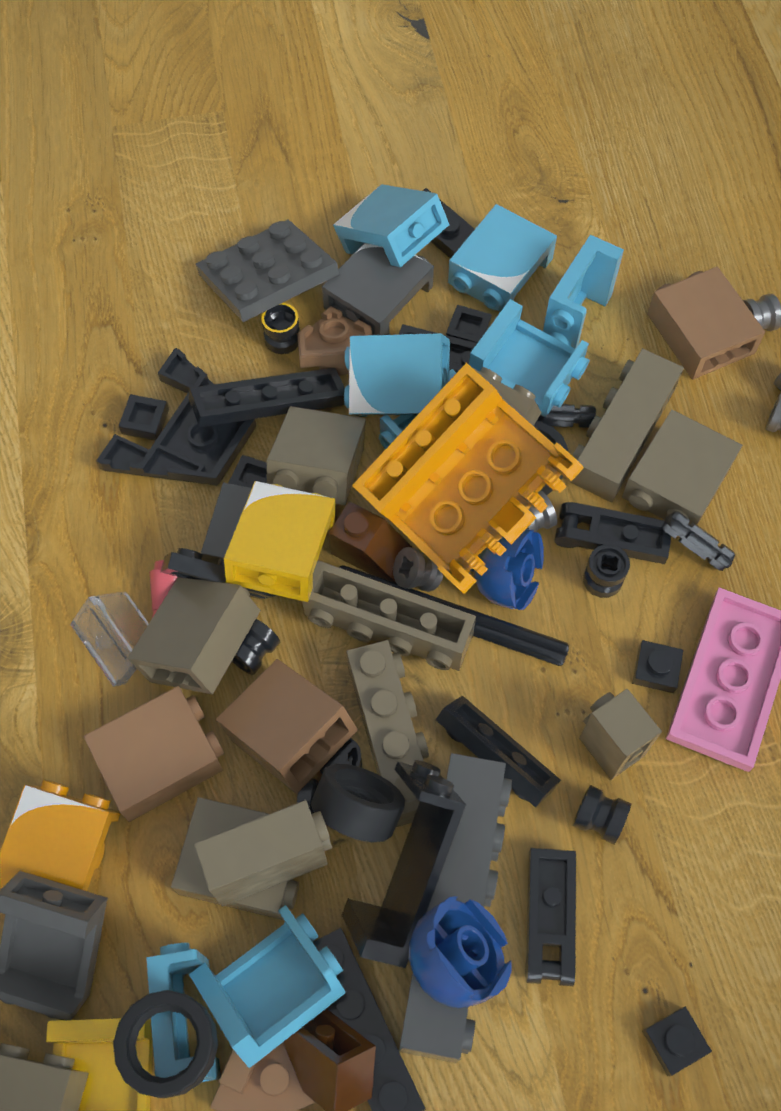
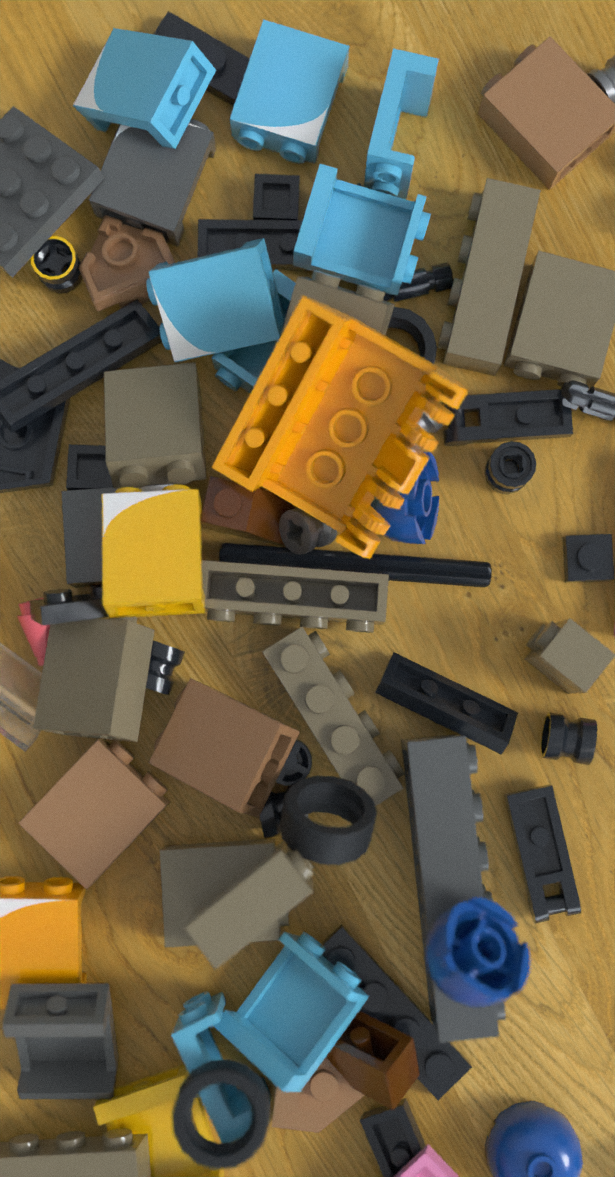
camera: 15 degrees left, 20 degrees up
(386, 930) = (395, 918): black panel -> none

